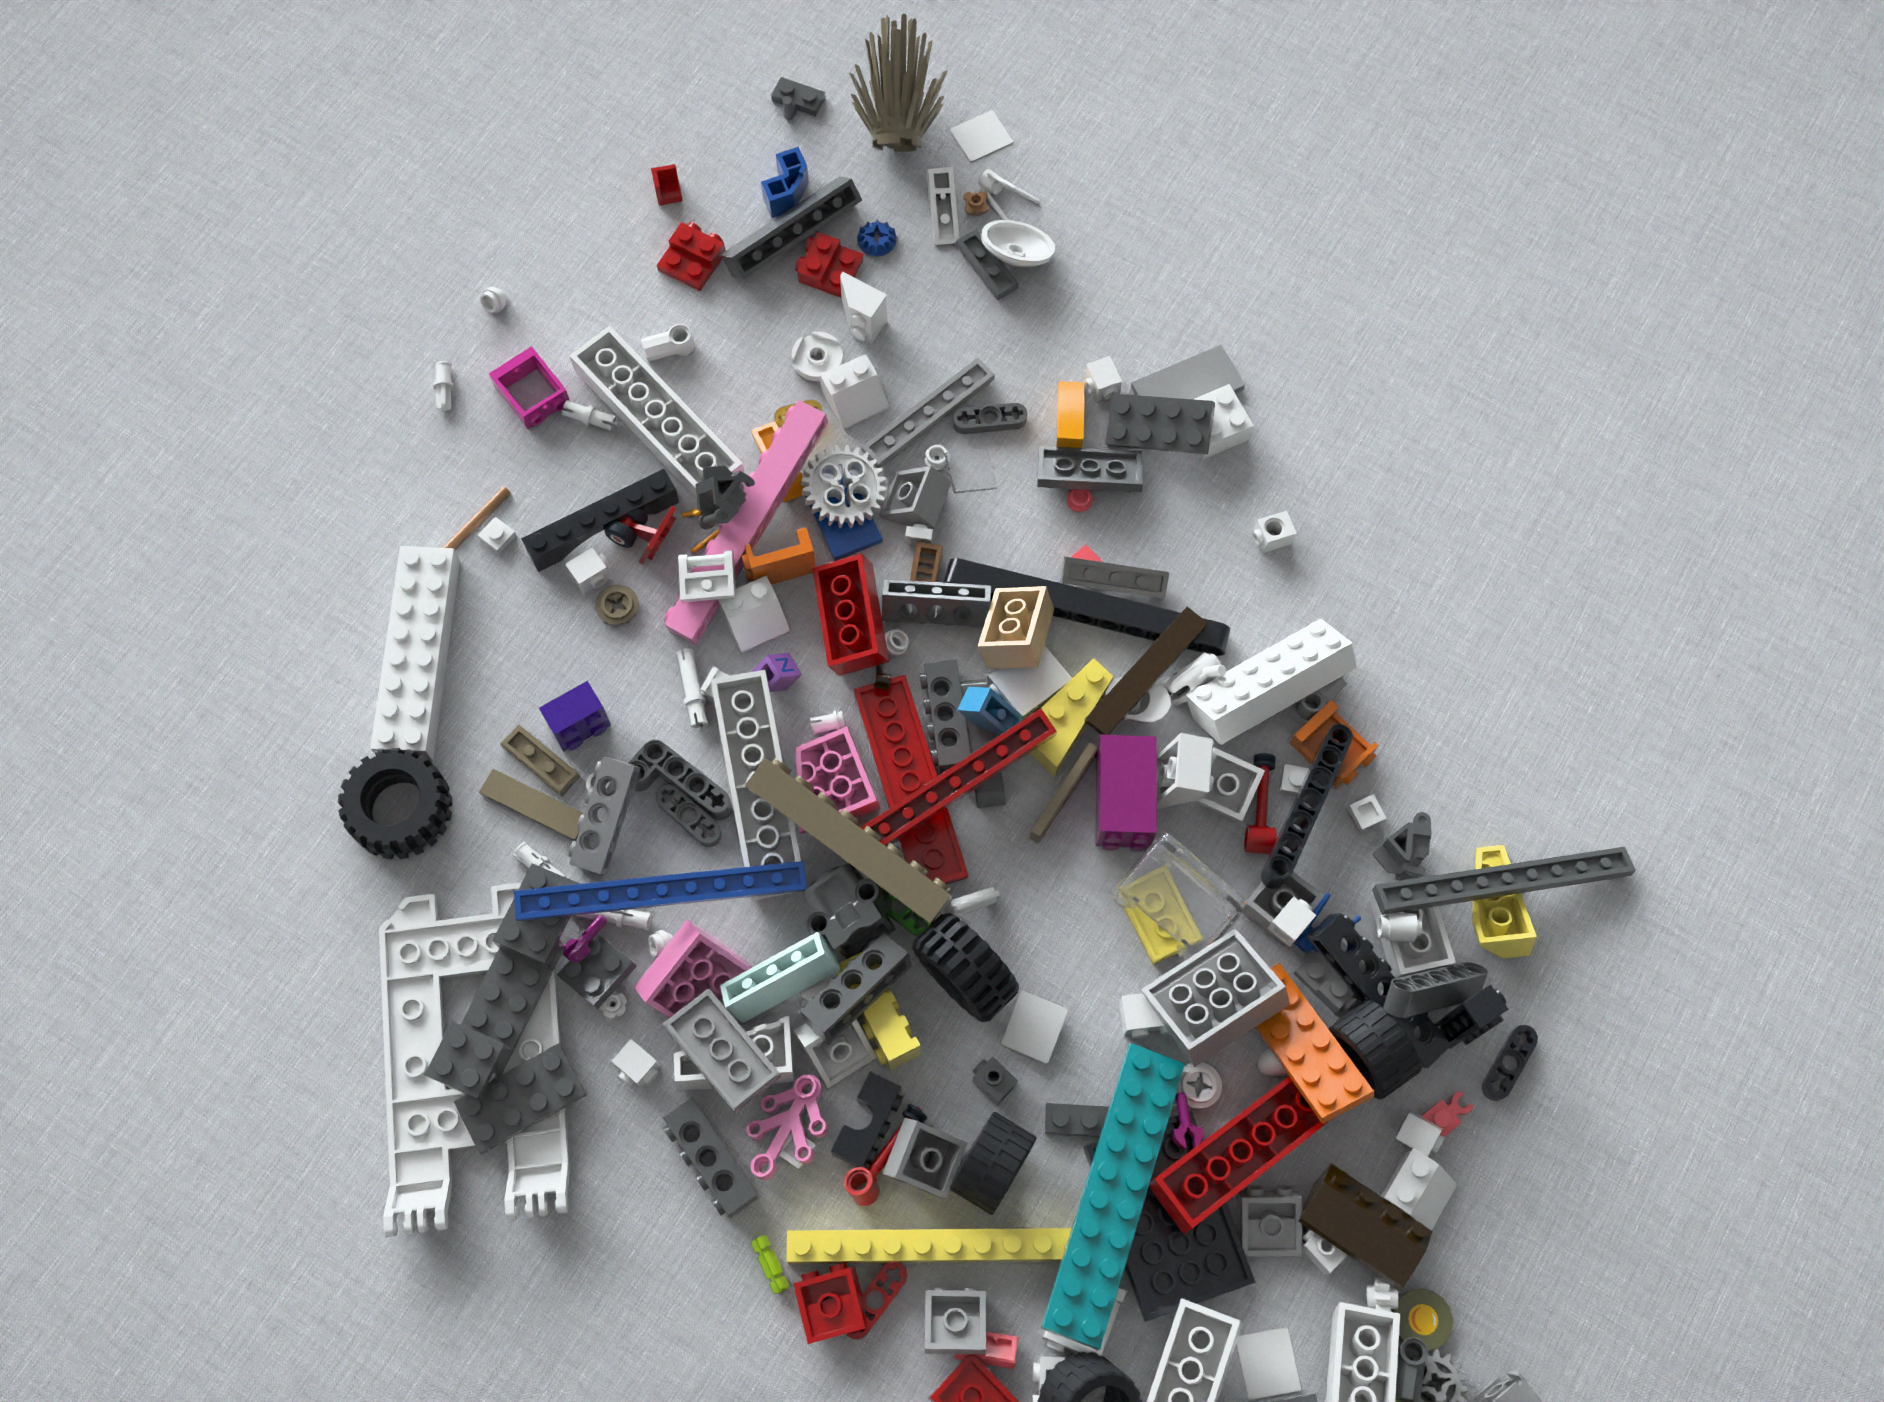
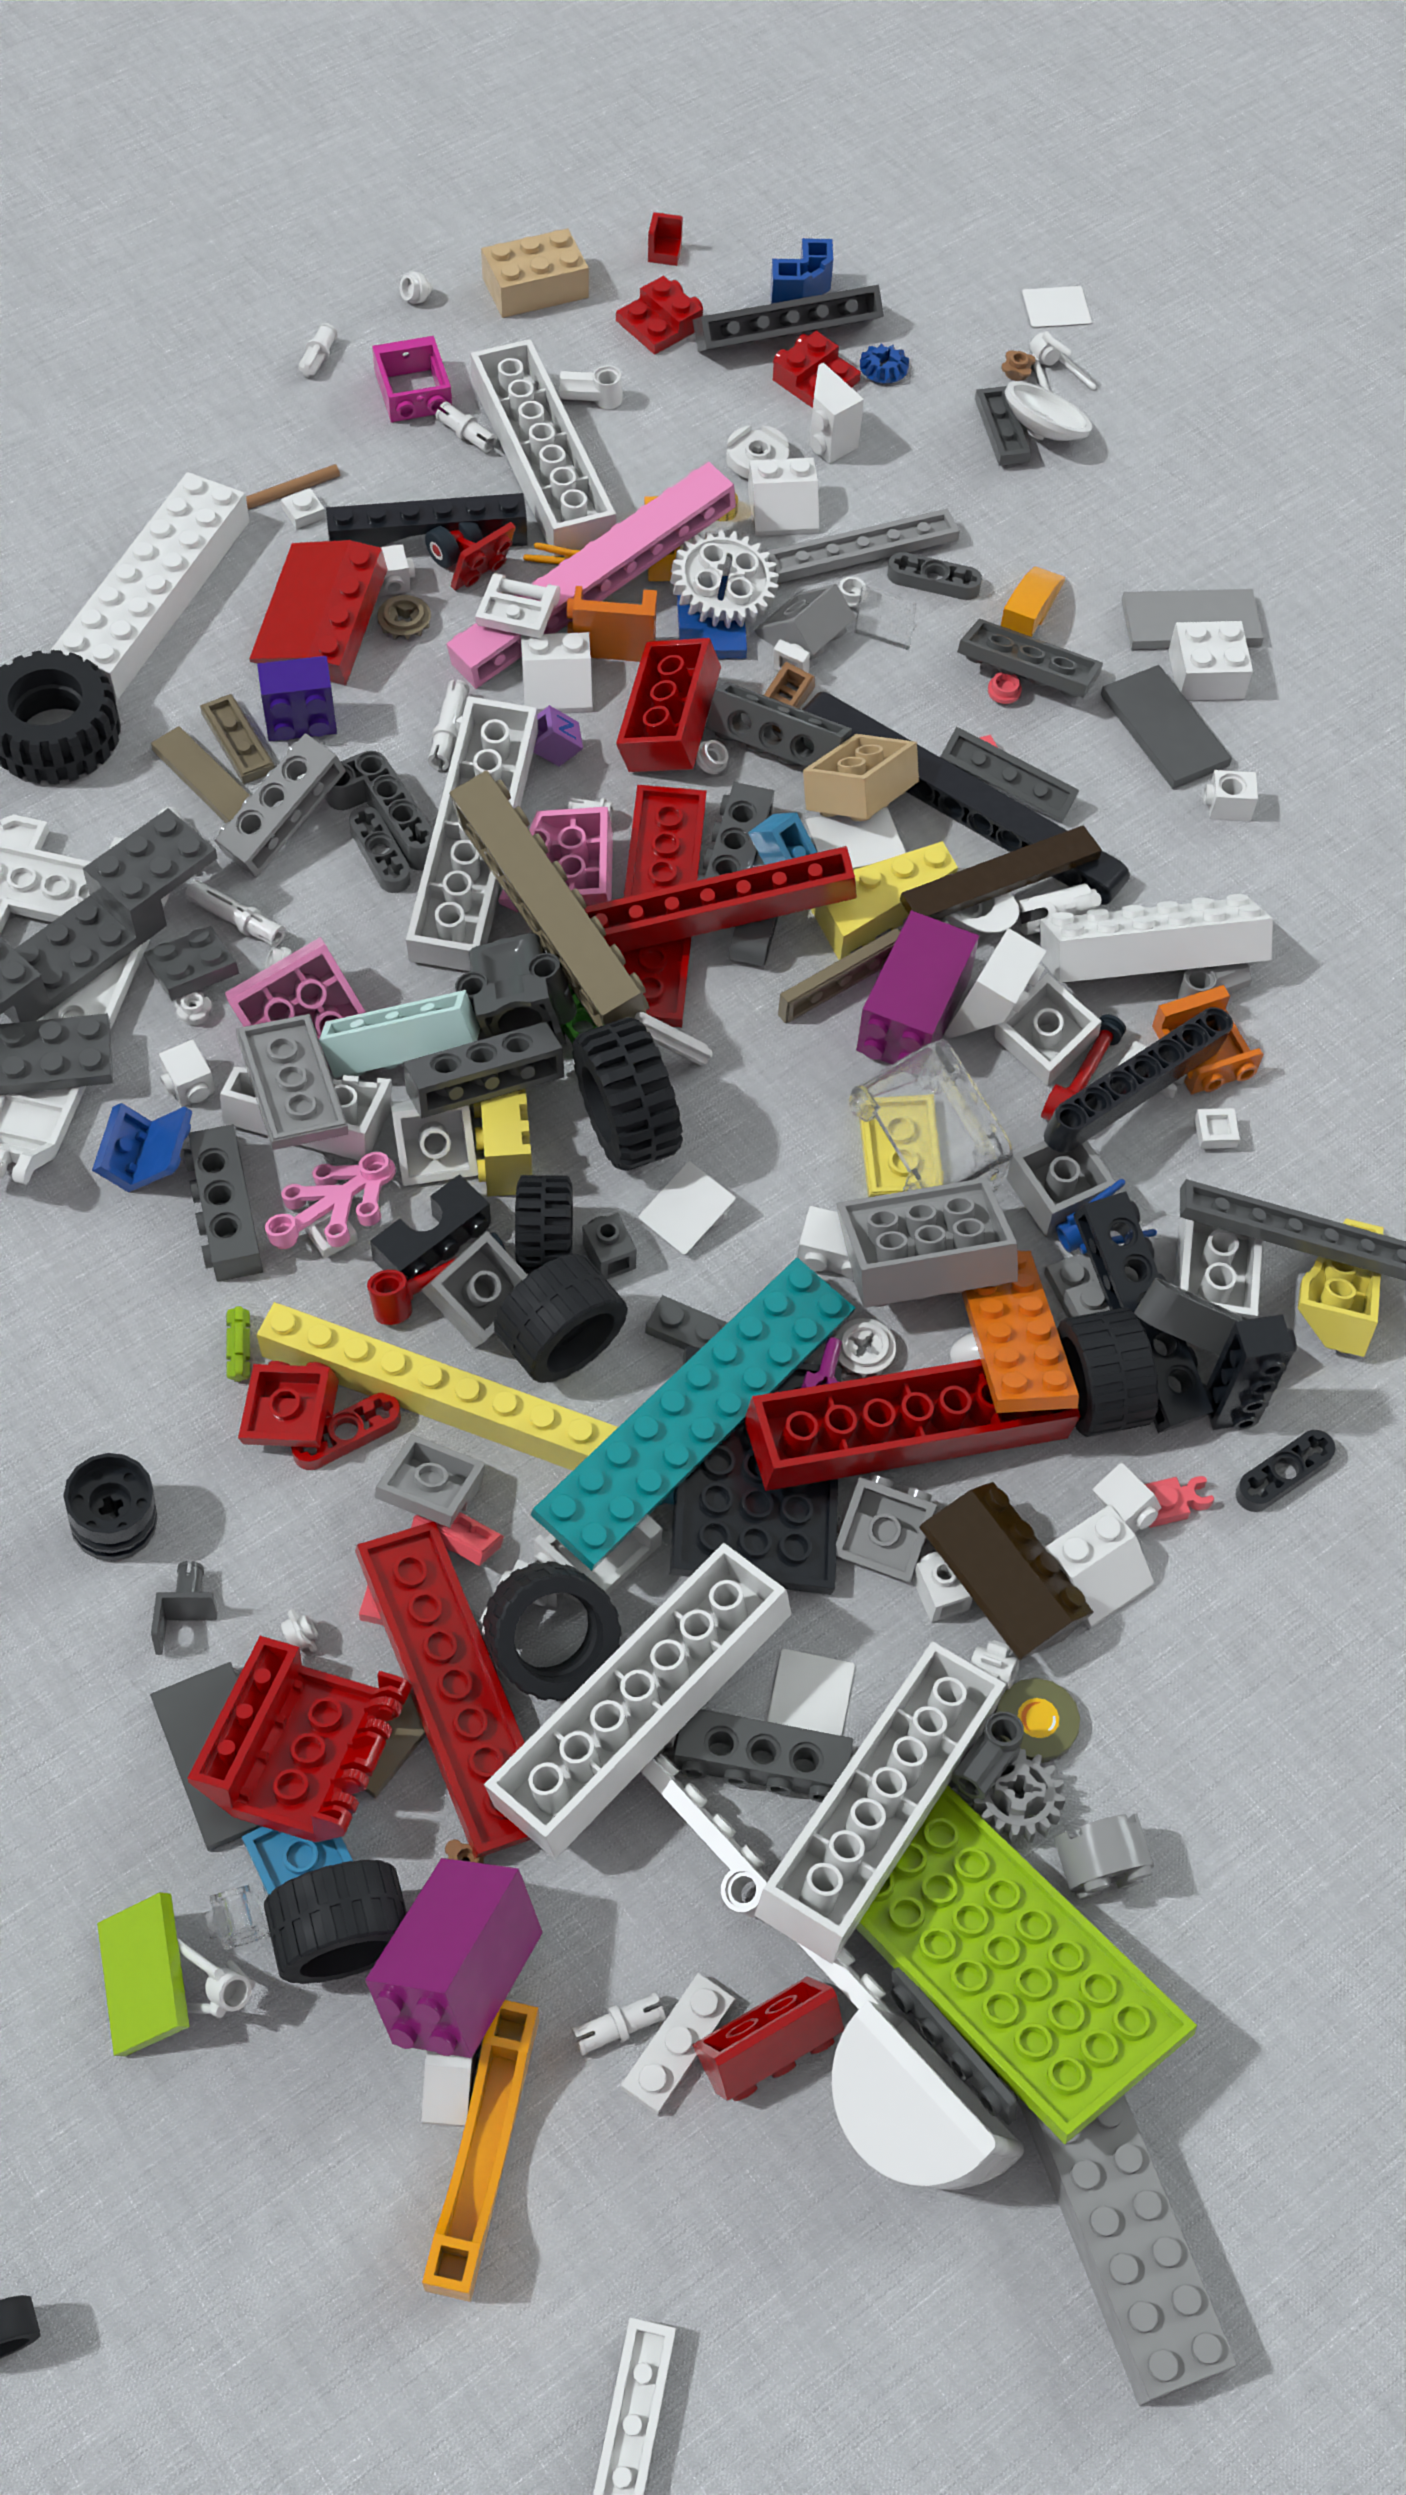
camera: 20 degrees right, 10 degrees down
(554, 628) = (322, 605): none -> red slope
(578, 949) = (185, 927): magenta bar -> none
(581, 253) = (535, 272): none -> tan brick
(634, 1139) = (140, 1149): none -> blue bracket
(659, 891) = (301, 883): blue plate -> none
(720, 495) = (572, 527): dark grey piece -> none
(796, 97) = (856, 205): dark grey plate -> none
(882, 679) = (677, 784): dark brown hand -> none
(901, 92) = (971, 226): dark tan plant -> none
(943, 205) = (977, 349): white slope -> none
(948, 1089) = (543, 1220): none -> black tyre
(1102, 379) = (1089, 576): white brick -> none
(1160, 423) = (1138, 635): dark grey plate -> none
(1205, 489) = (1165, 726): none -> dark grey tile
(1292, 920) = (1061, 1188): white brick -> none
(1399, 927) = (1198, 1243): white brick -> none
(1406, 848) = (1250, 1165): dark grey piece -> none

